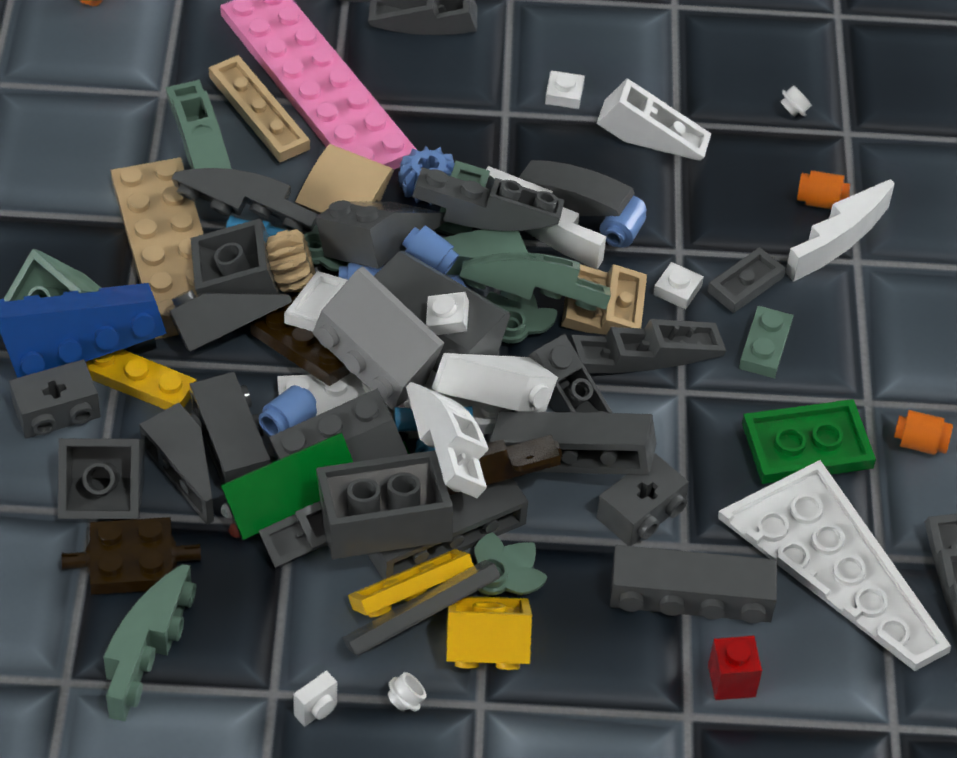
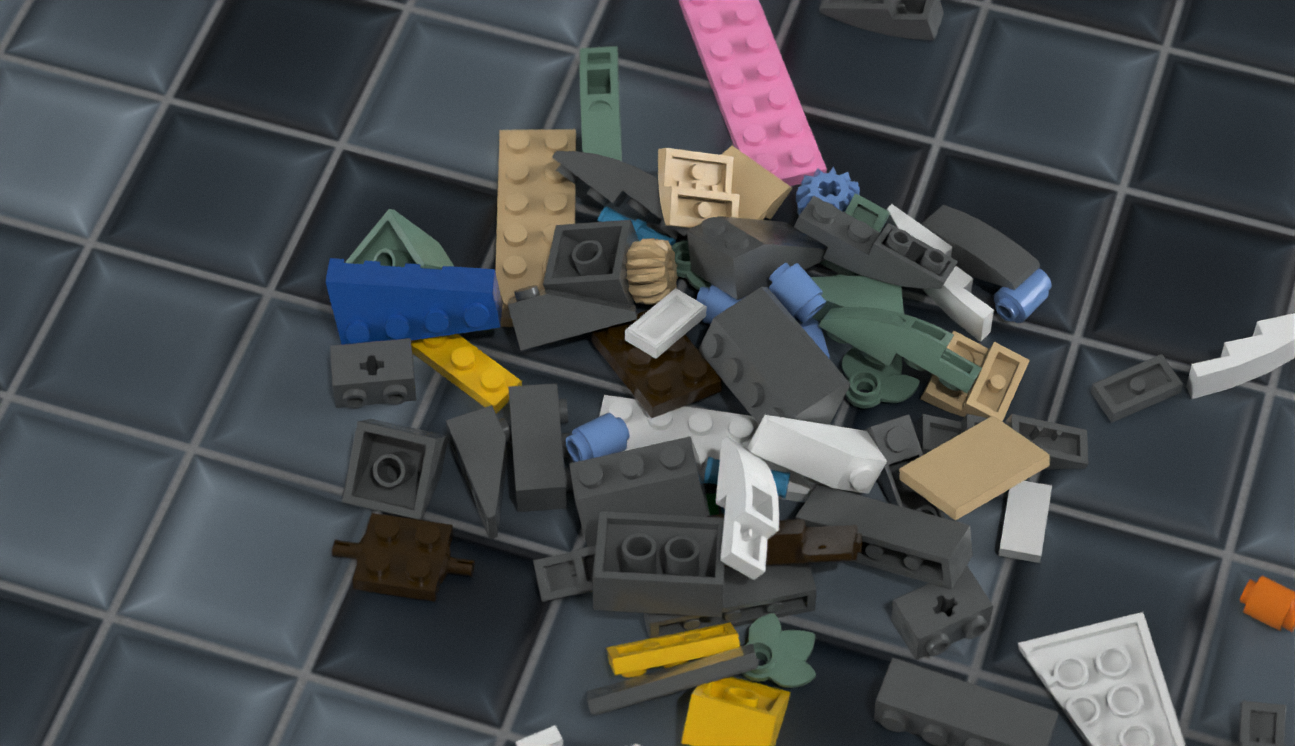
camera: 20 degrees right, 5 degrees up
(143, 632) = (395, 638): sand green slope -> none
(259, 108) = (673, 88): tan plate -> none
(279, 487) = (567, 519): green piece -> none
(310, 180) = (695, 187): none -> tan slope
(378, 337) = (707, 381): light grey slope -> none
(447, 313) = (785, 370): white plate -> none
(564, 89) = (1009, 127): white plate -> none
(636, 367) = (974, 467): none -> tan tile
(650, 123) = (1091, 186): white slope -> none
(678, 285) = (1061, 378): white plate -> none
(687, 408) = (1025, 521): none -> white tile
(766, 342) = (1136, 462): sand green plate -> none
(795, 101) = (1261, 189): white plate -> none
(801, 435) = (1134, 579): green plate -> none
(822, 189) = (1256, 299): orange brick -> none

